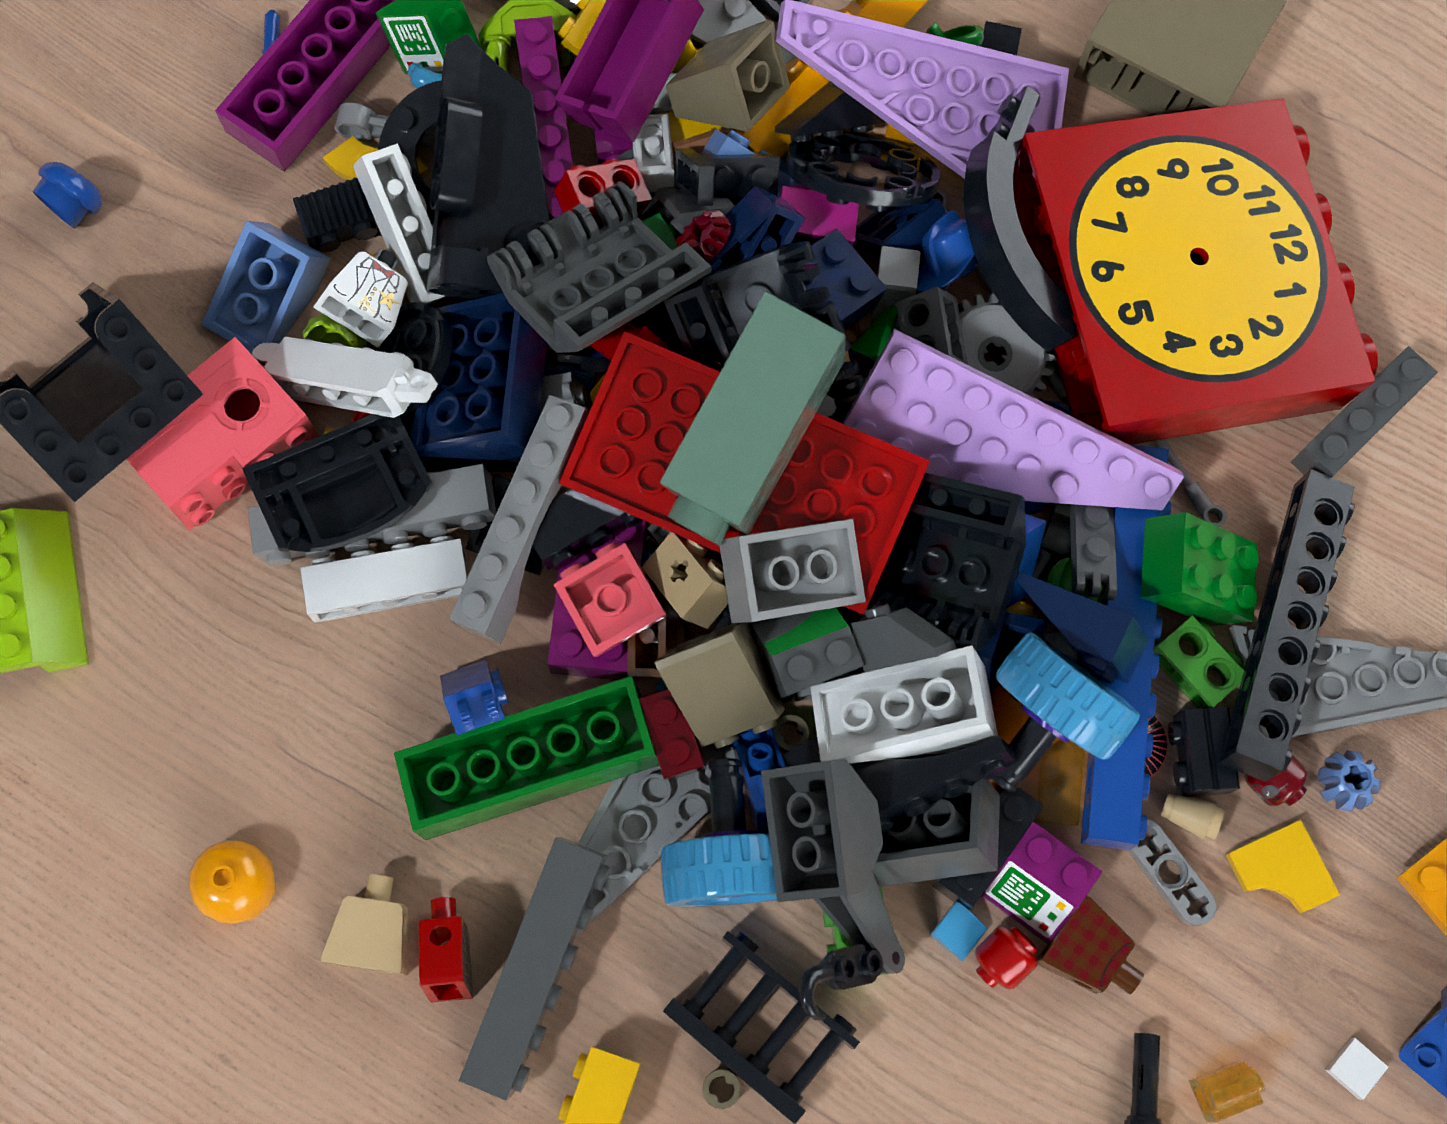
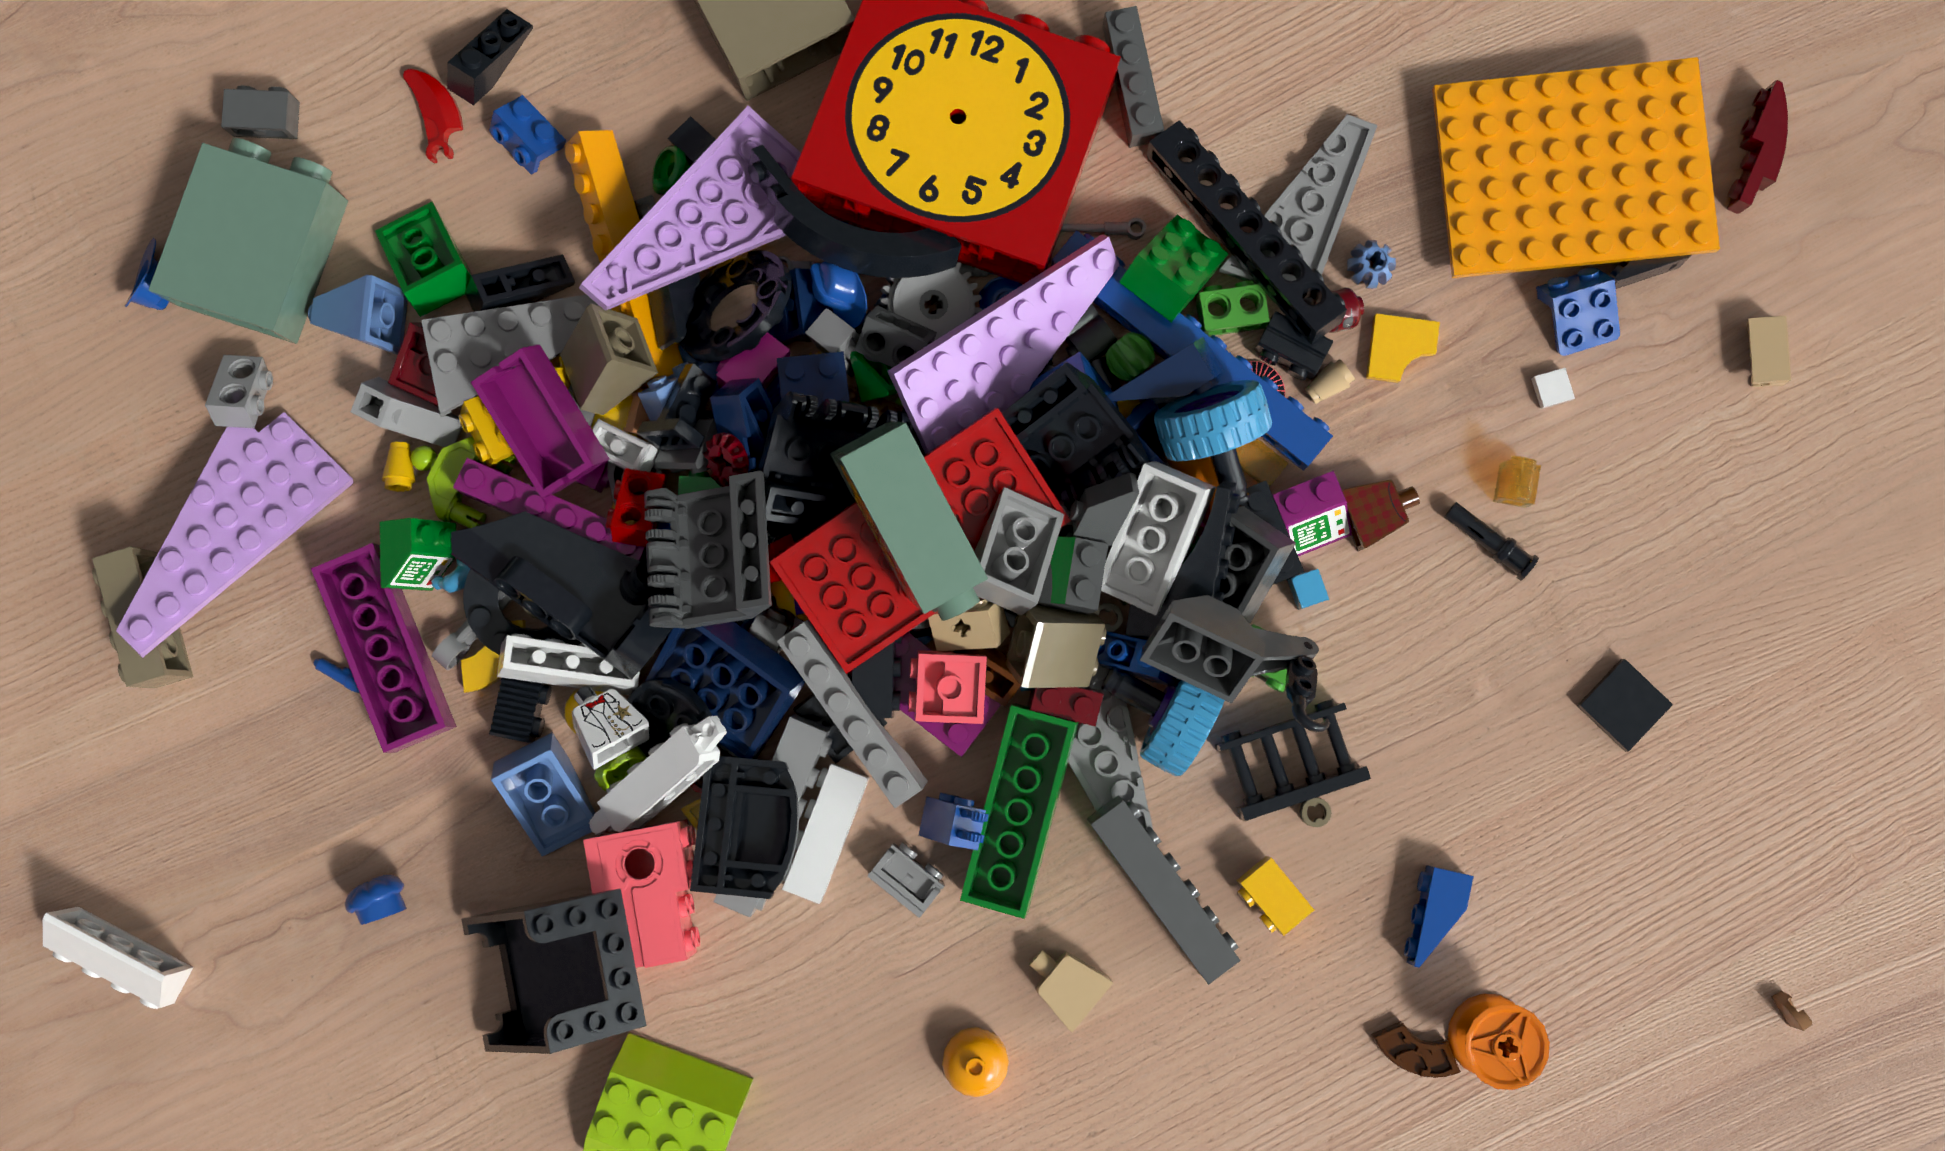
camera: 55 degrees left, 10 degrees up
(387, 691) = (907, 879): none -> light grey hinge
(446, 967) = (1130, 947): red torso -> none
(1006, 957) = (1346, 570): red head -> none
(1093, 550) = (1118, 332): dark grey hinge -> none
(1180, 903) = (1379, 413): light grey beam -> none

